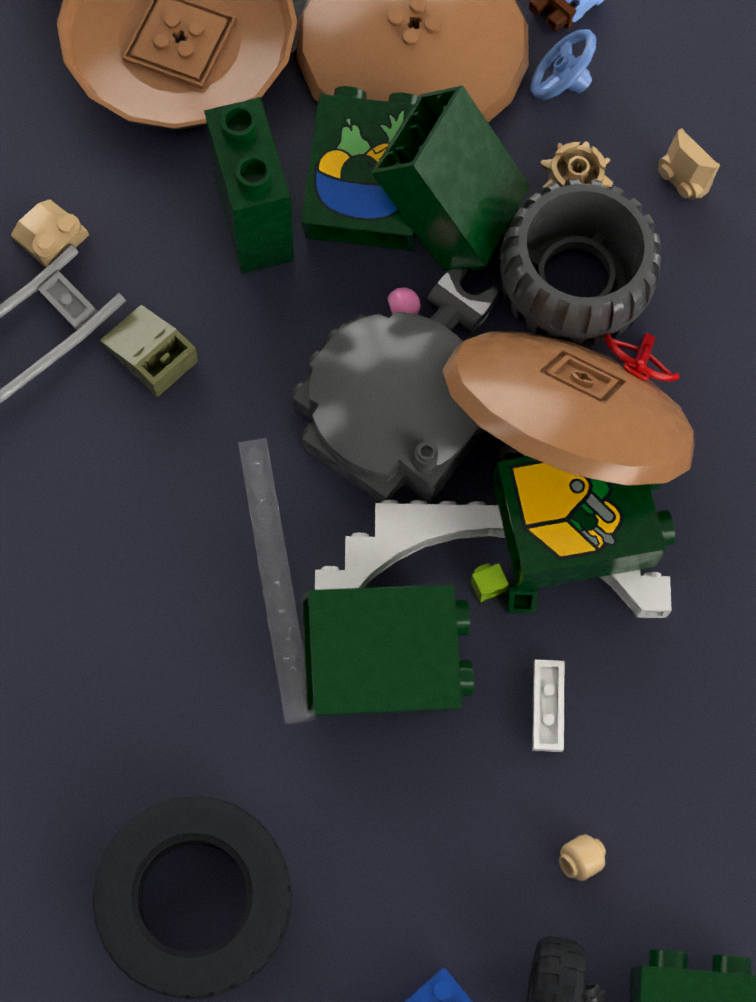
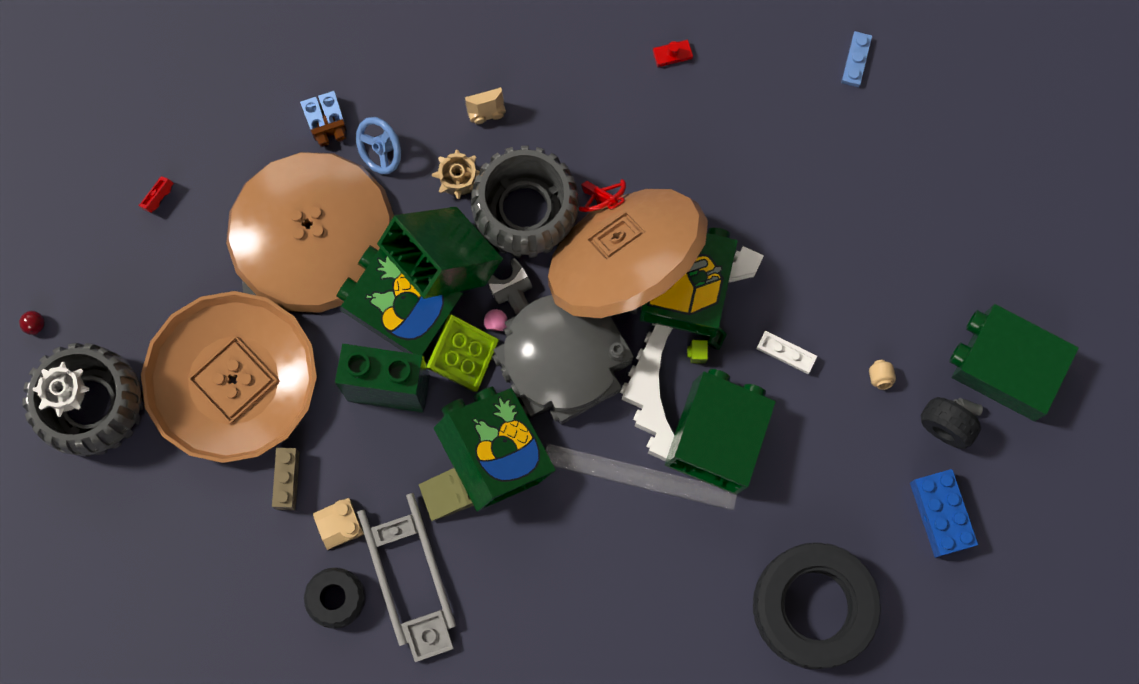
camera: 65 degrees left, 5 degrees up
(78, 146) = (285, 479): none -> dark tan brick
(223, 361) = (493, 447): none -> dark green brick
(336, 277) = (462, 353): none -> lime plate

